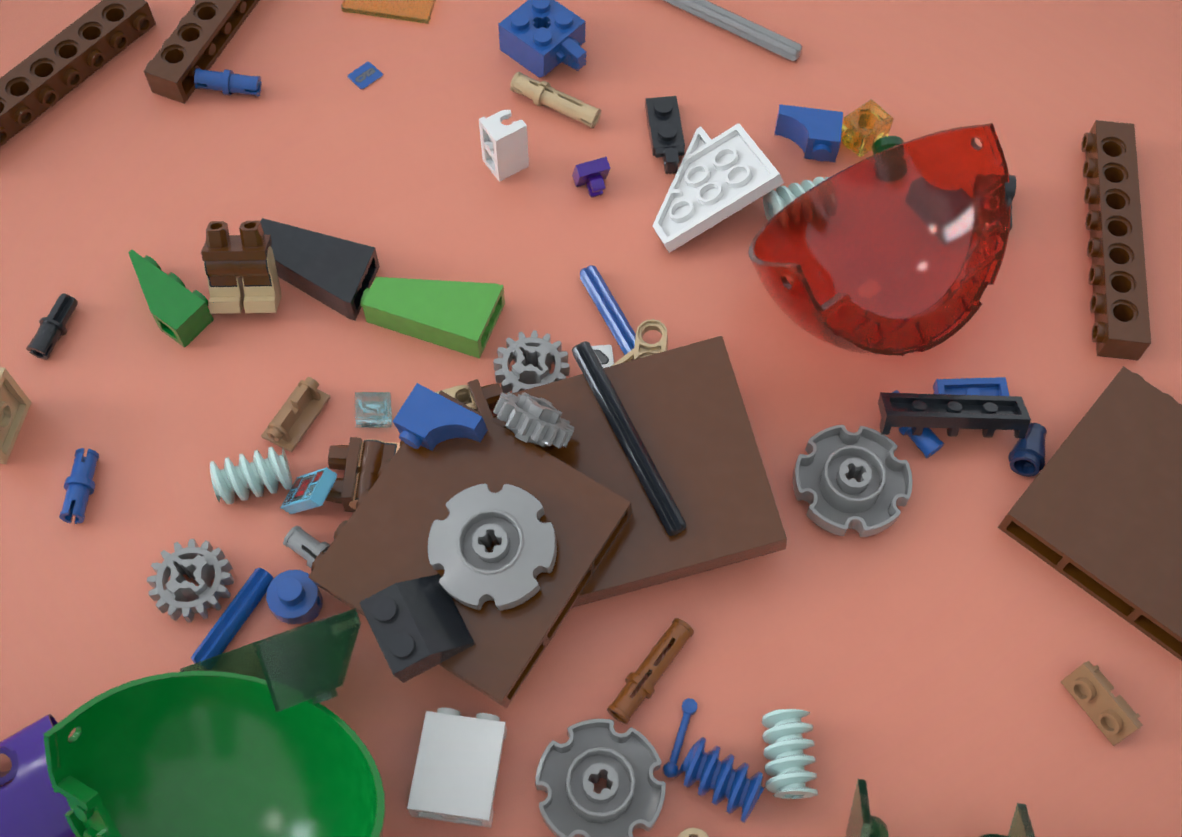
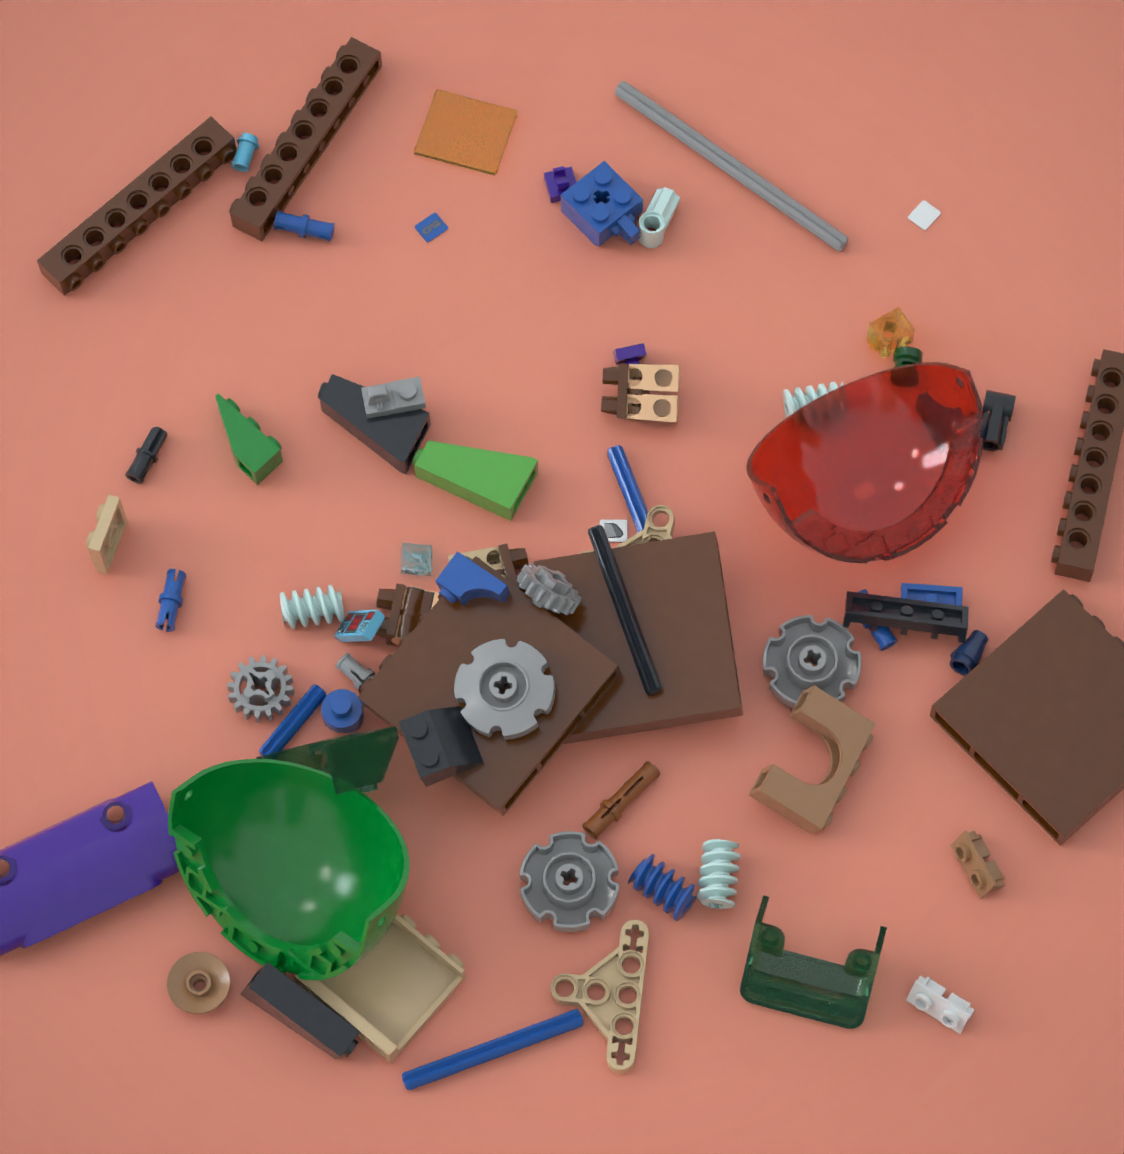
camera: 10 degrees right, 5 degrees up
(164, 15) = (247, 145): none -> medium azure pin
(240, 269) = (314, 421): reddish brown hips -> none
(296, 415) = (351, 557): medium nougat hinge -> none
(332, 234) = (393, 397): none -> light grey hinge
(457, 767) = (461, 856): white panel -> none
(490, 19) = (558, 182): none -> dark purple tile
(504, 146) = (552, 325): white hinge -> none
(532, 363) = (559, 523): light grey gear -> none
(545, 95) = (598, 268): tan pin -> none
(601, 43) = (658, 217): none -> light aqua piece
(614, 205) = (634, 390): none -> light nougat hips
(665, 131) = (705, 314): black hinge -> none
(688, 708) = (647, 832): blue hinge -> none
(713, 184) = (739, 377): white wing -> none
(812, 130) = (842, 330): blue arch -> none
(872, 22) = (924, 215): none -> white sticker
(912, 564) = (845, 736): none -> medium nougat arch

